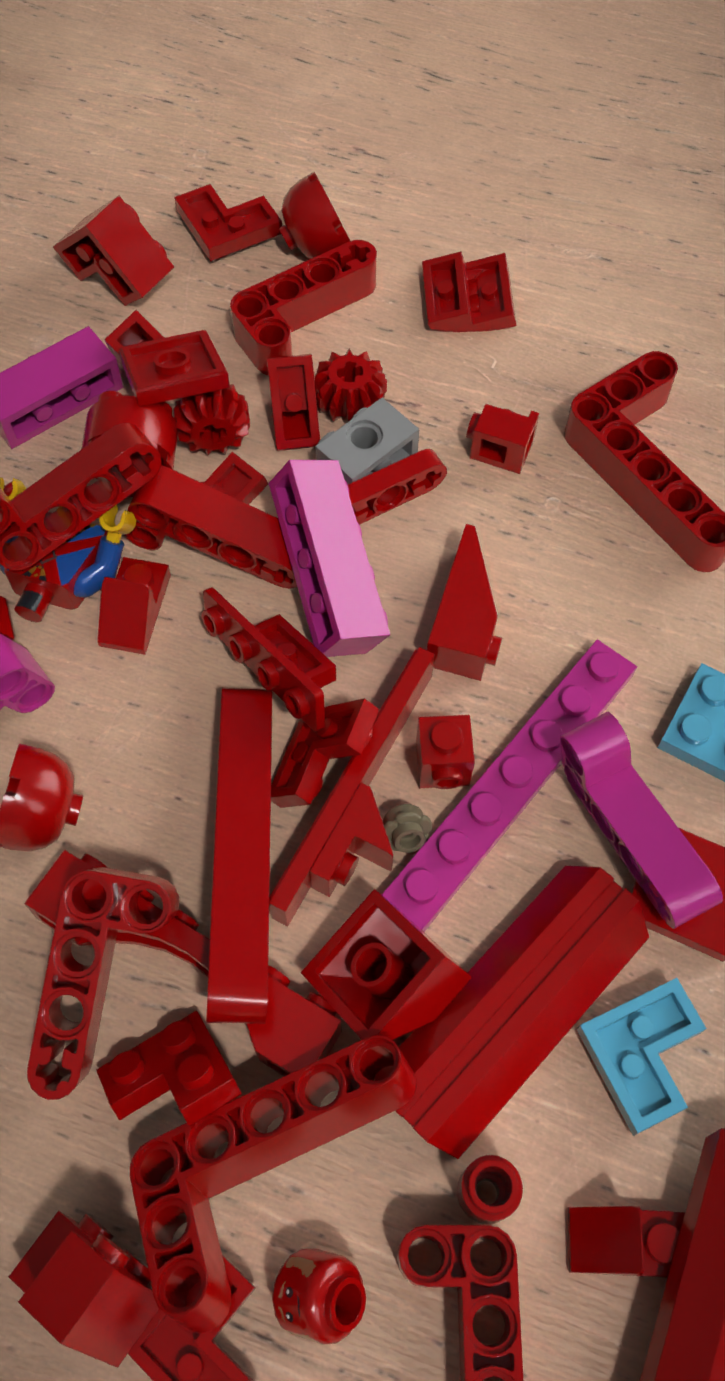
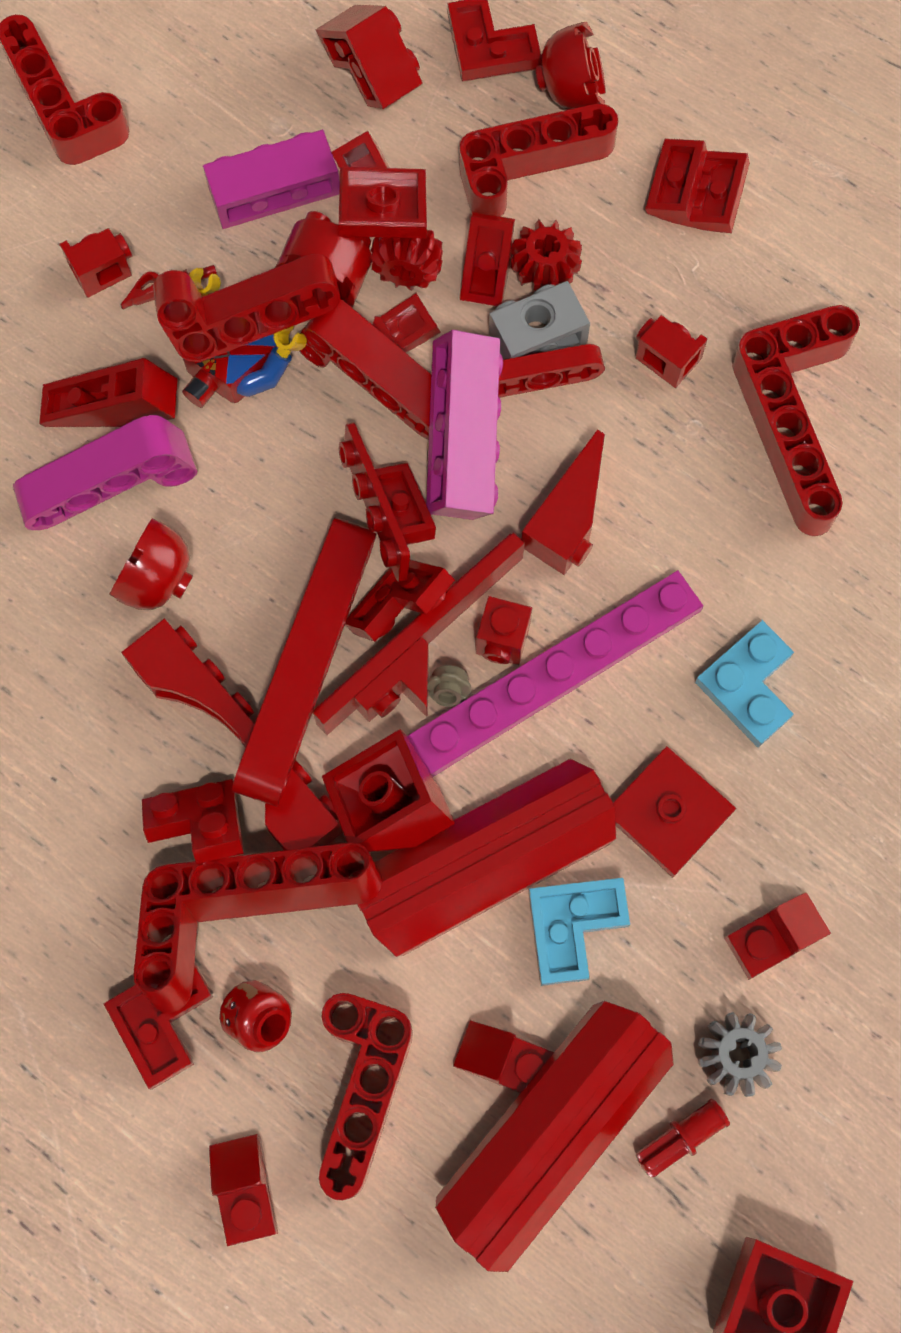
camera: 20 degrees right, 10 degrees up
(82, 981) = (151, 730): red beam -> none
(86, 1288) = (88, 953): red brick -> none
(132, 605) = (284, 414): red slope -> none
(502, 1176) = (409, 970): red brick -> none
(635, 823) = (639, 740): dark pink beam -> none

